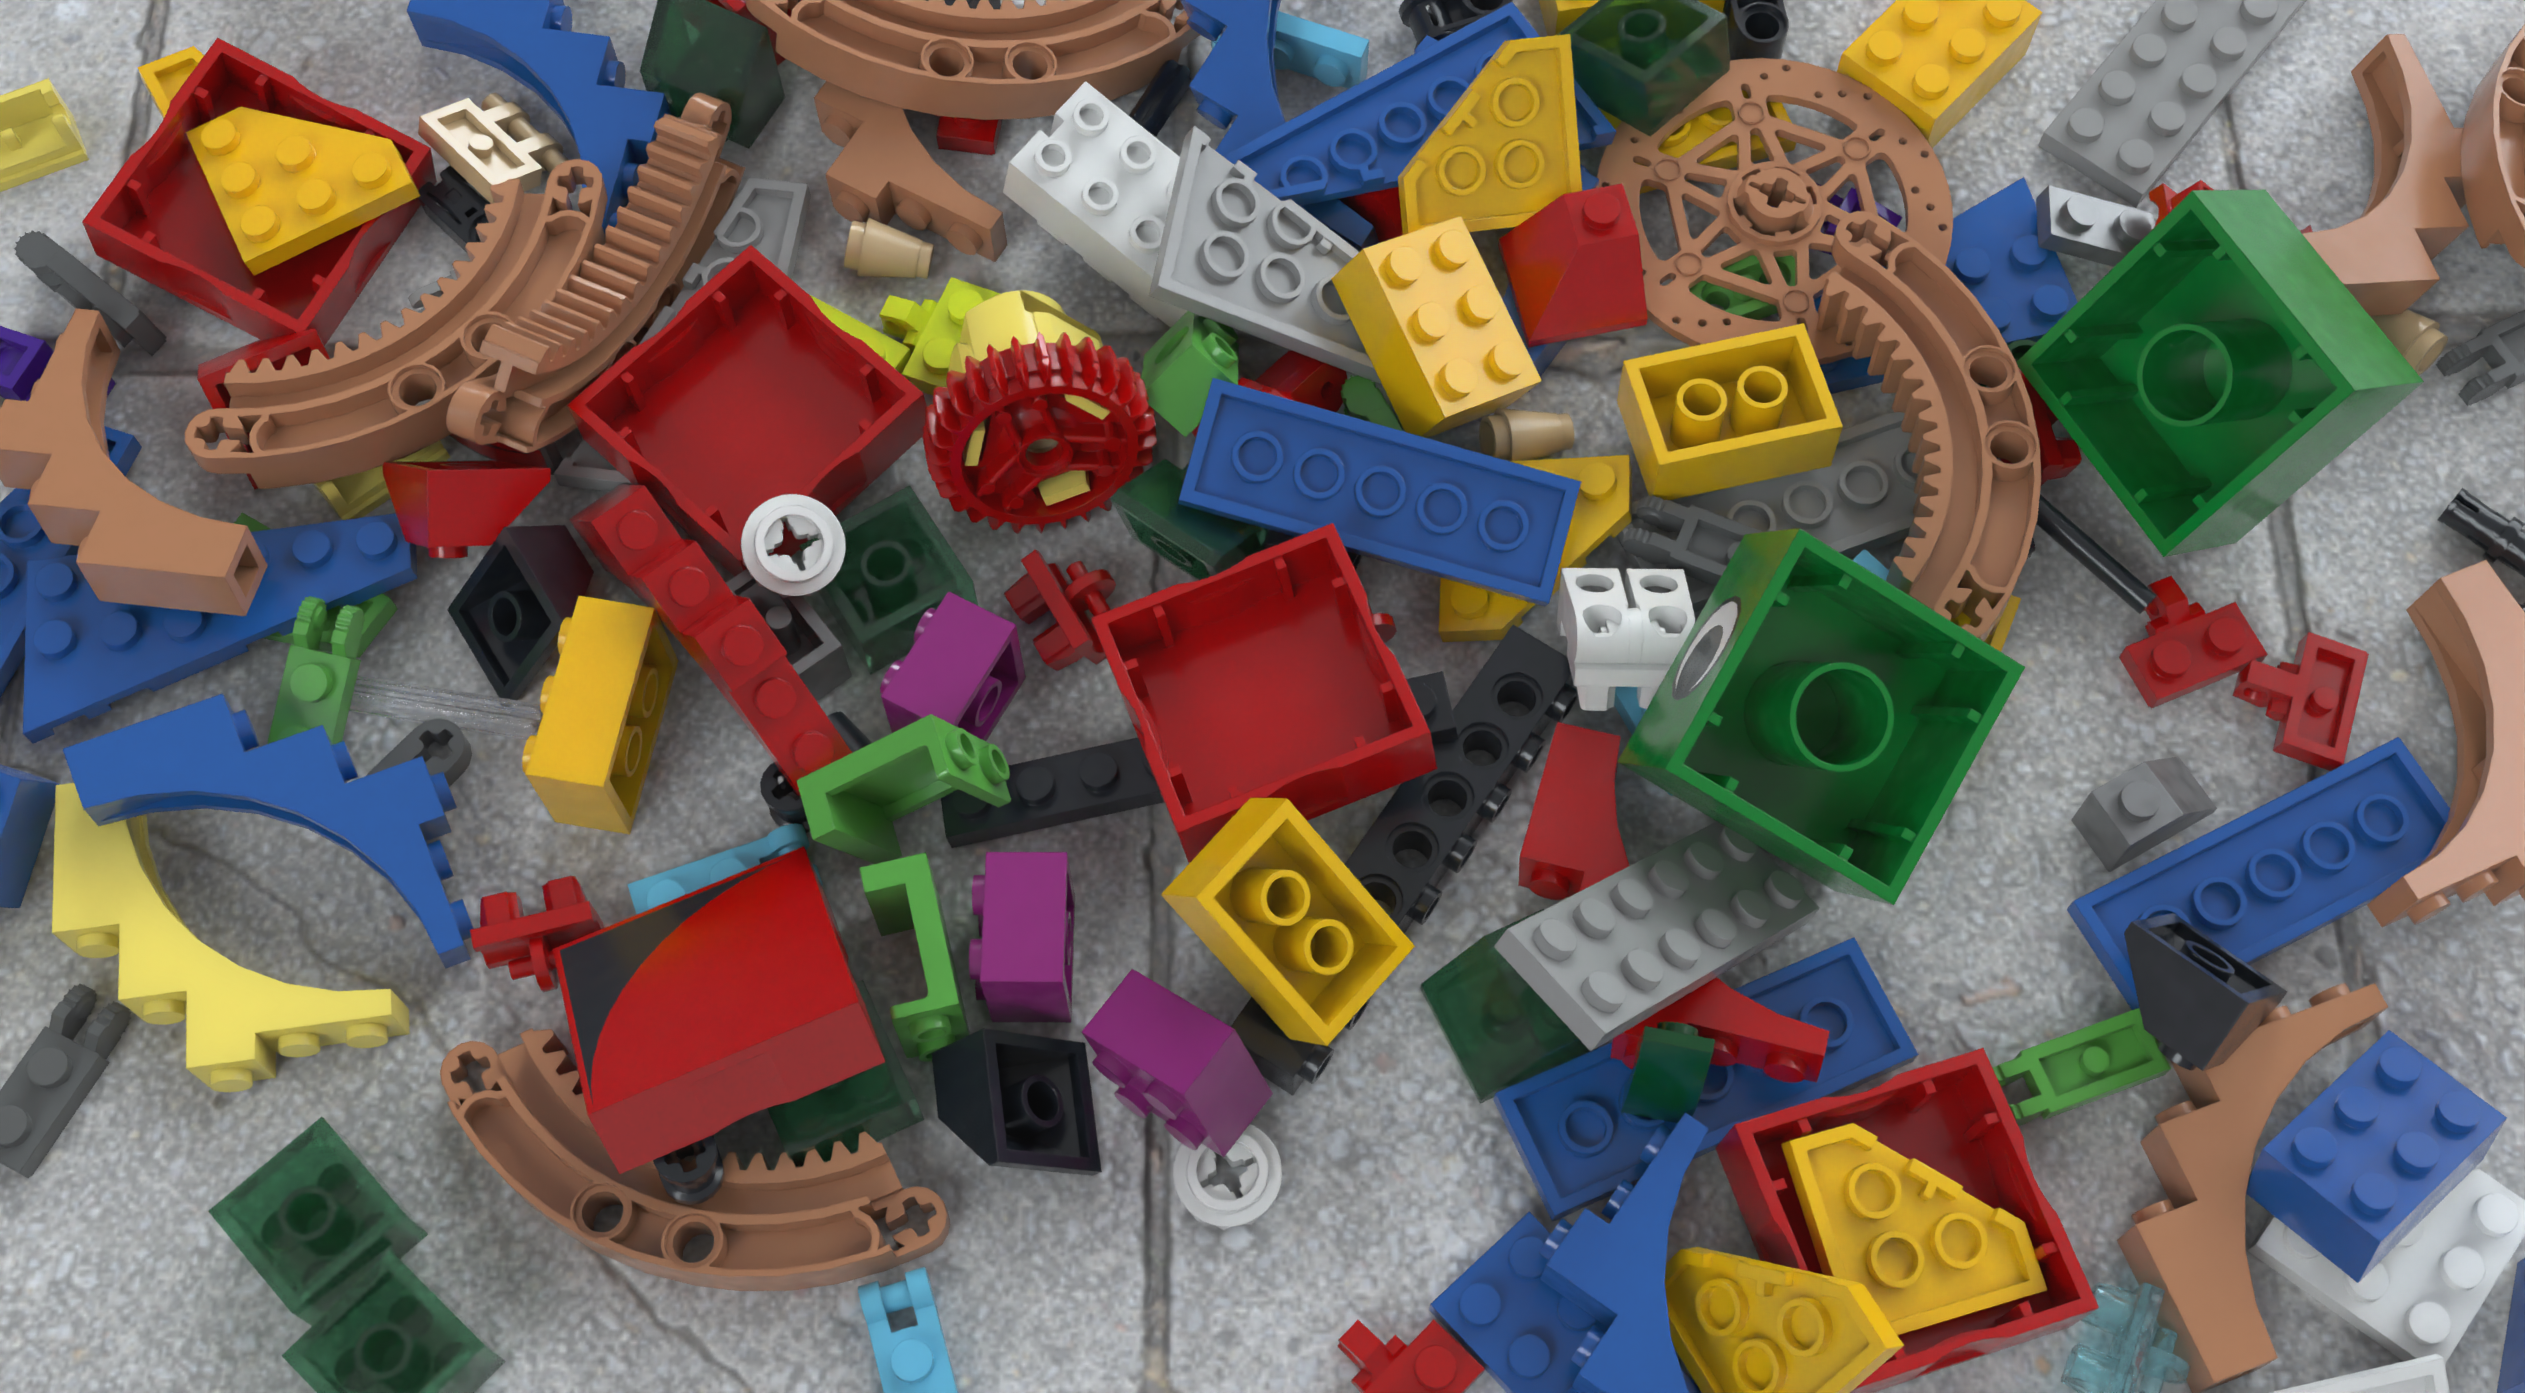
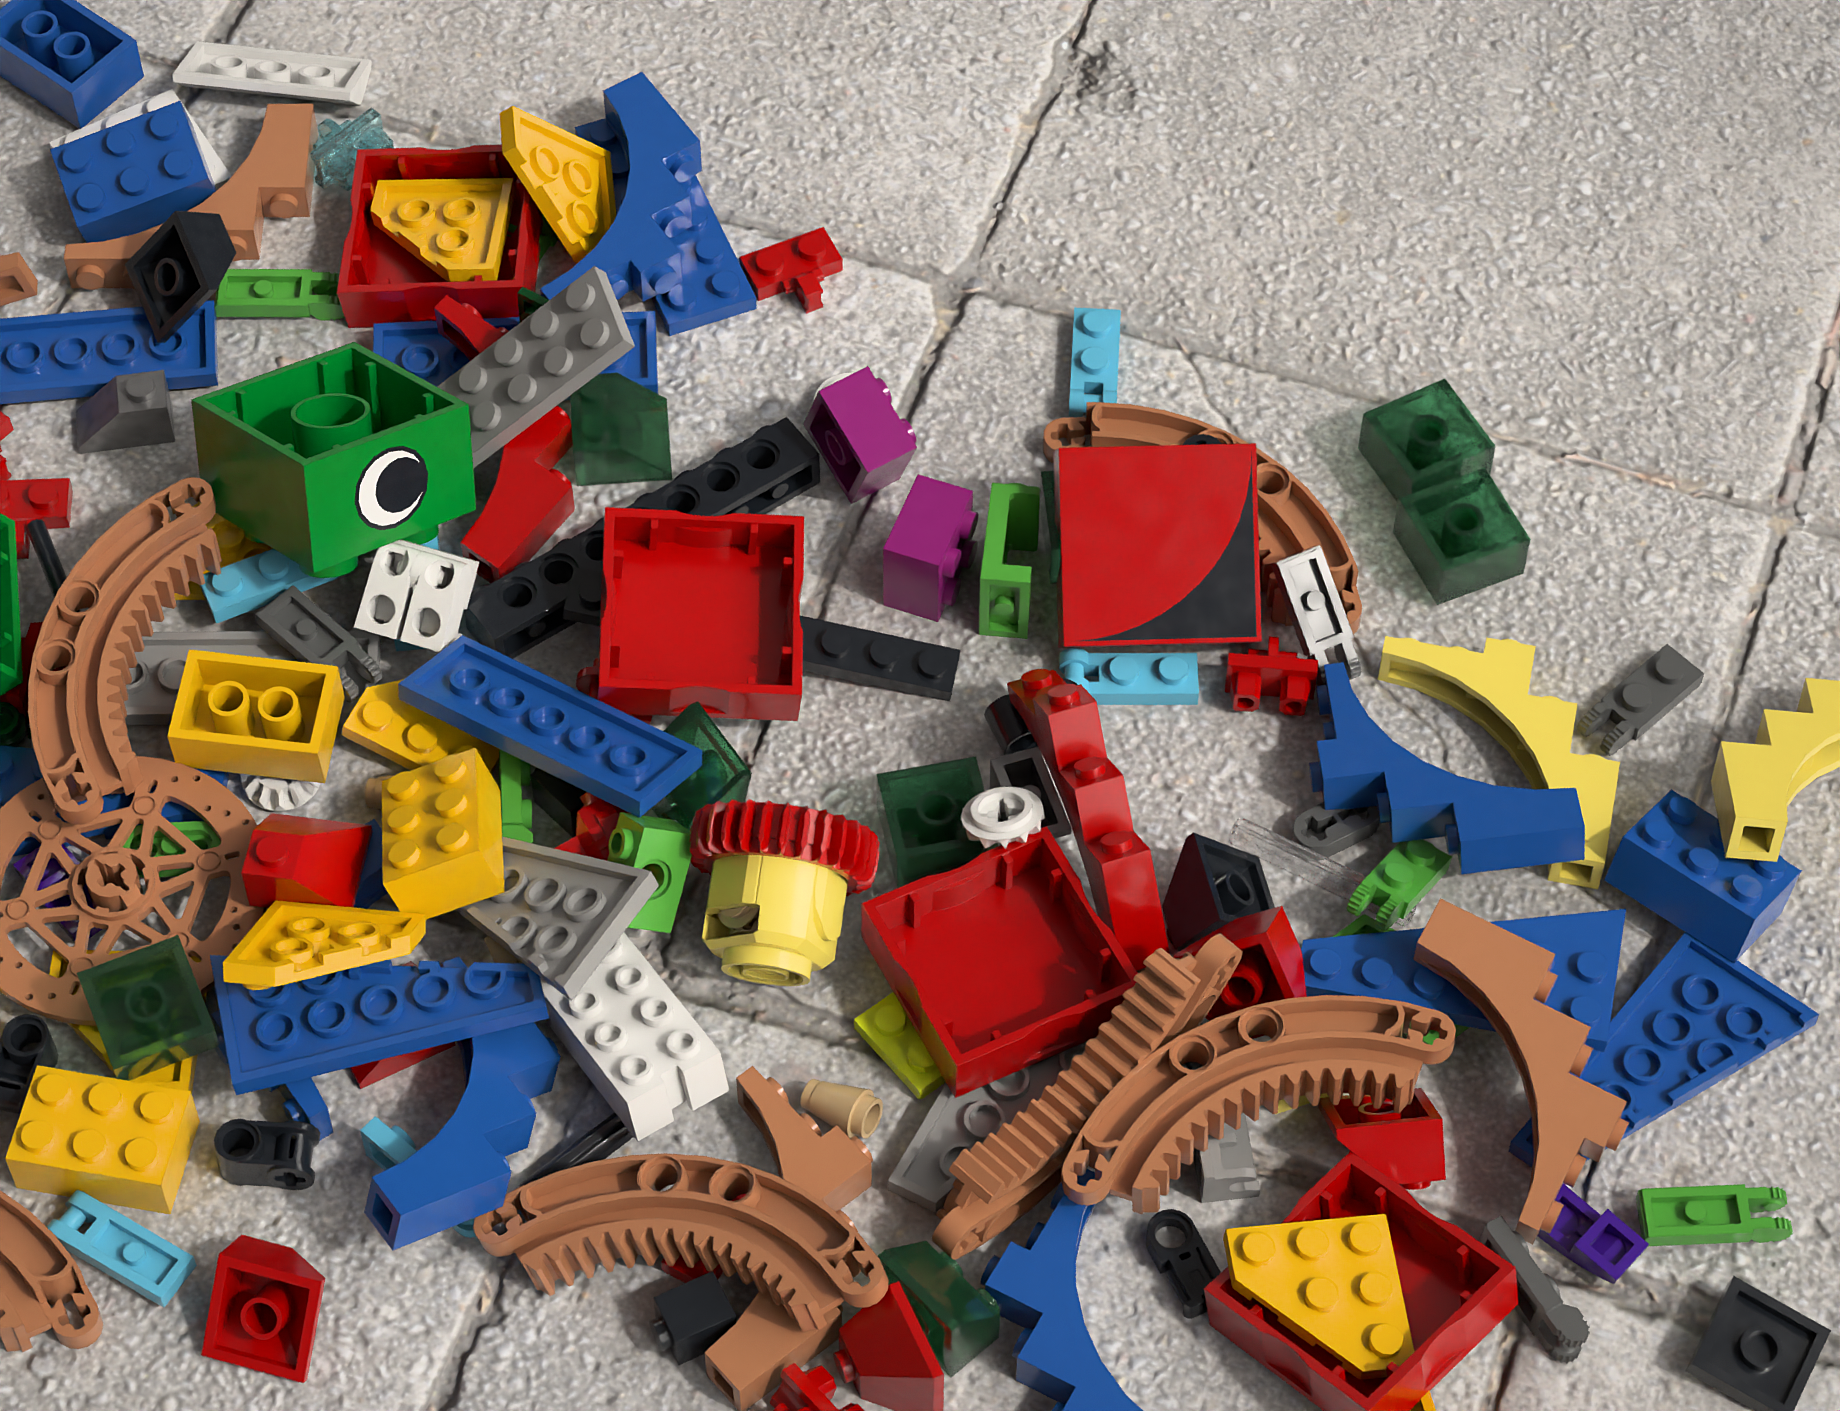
camera: 160 degrees left, 10 degrees down
(483, 143) = (1160, 1295): tan plate -> none
(491, 1015) = (1316, 609): none -> hinge
(601, 714) = (1188, 777): yellow brick -> none
(861, 795) = (971, 653): bright green panel -> none
(931, 330) = (820, 1028): neon yellow hinge -> none
(959, 669) = (918, 718): magenta brick -> none
(1019, 1100) = (977, 456): black slope -> none
(1048, 589) = (806, 771): red hips -> none
(1288, 920) = (755, 449): yellow brick -> none

